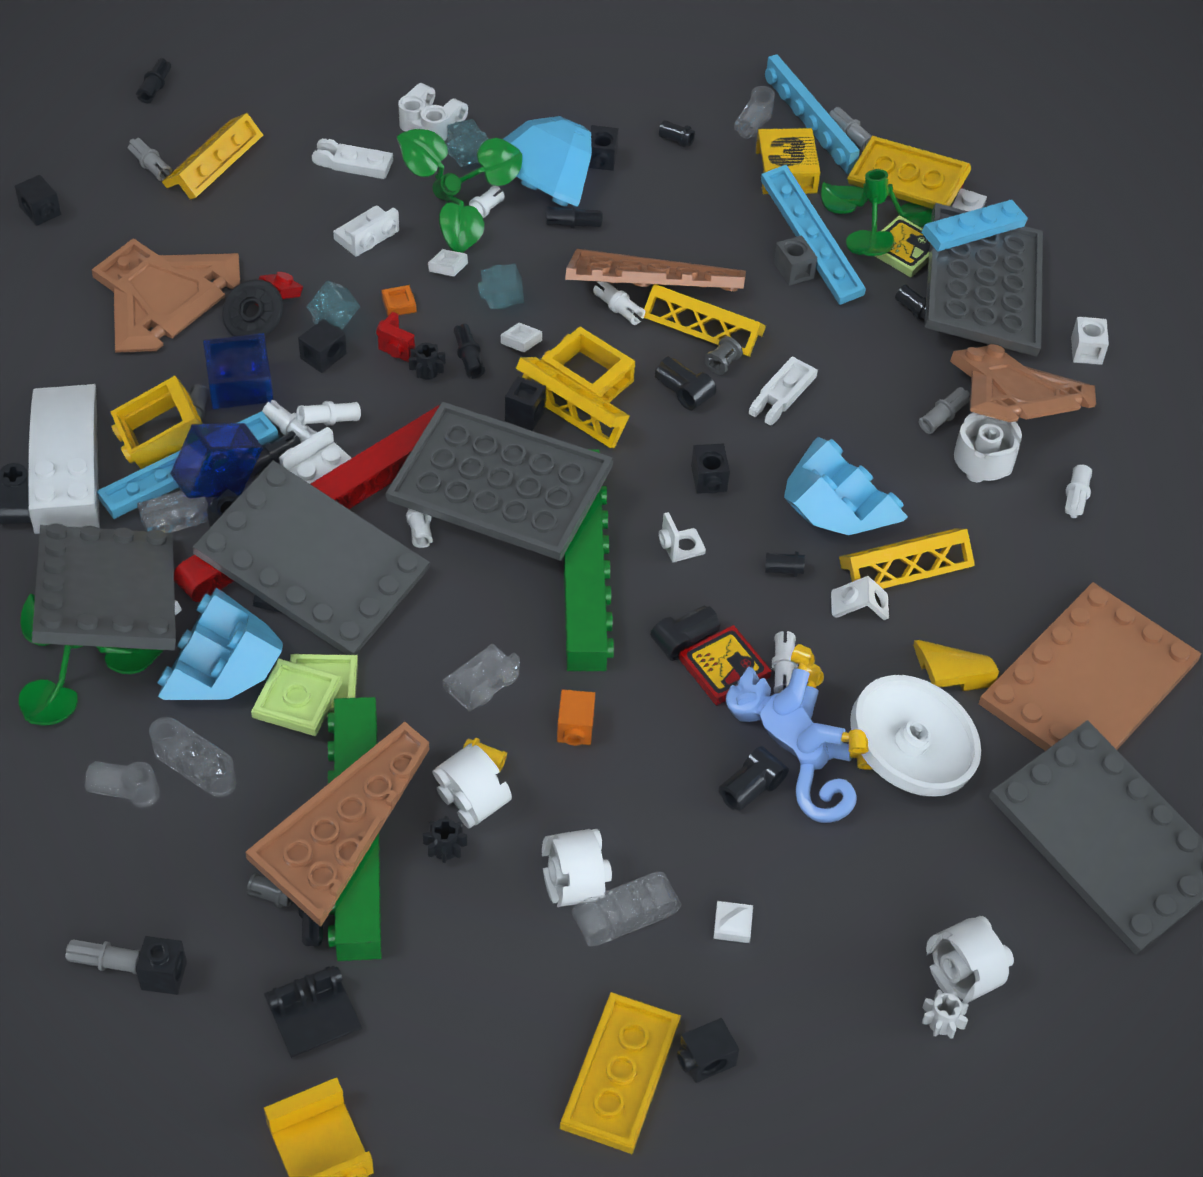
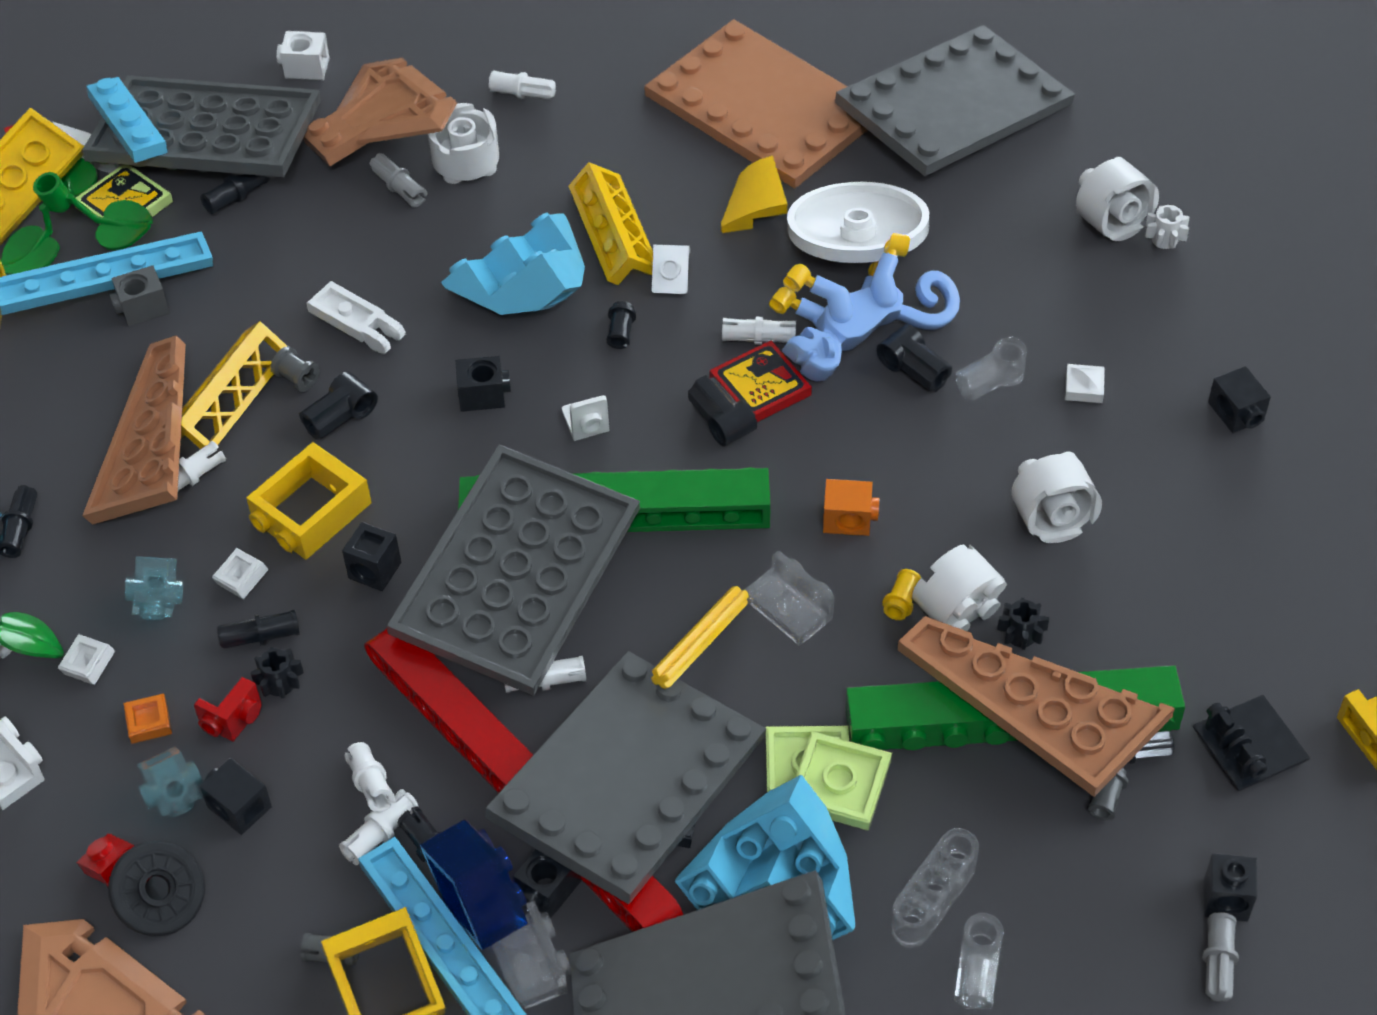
camera: 85 degrees left, 0 degrees up
(238, 371) = (286, 887): clear blue piece -> none
(314, 456) = (448, 791): white bracket -> none
(439, 606) = (699, 637): none -> yellow axle
(578, 397) = (362, 504): yellow fence -> none
(620, 1073) = (1268, 475): yellow tile -> none
(626, 908) = (1104, 471): clear beam -> none
(738, 840) = (1000, 367): none -> clear piece

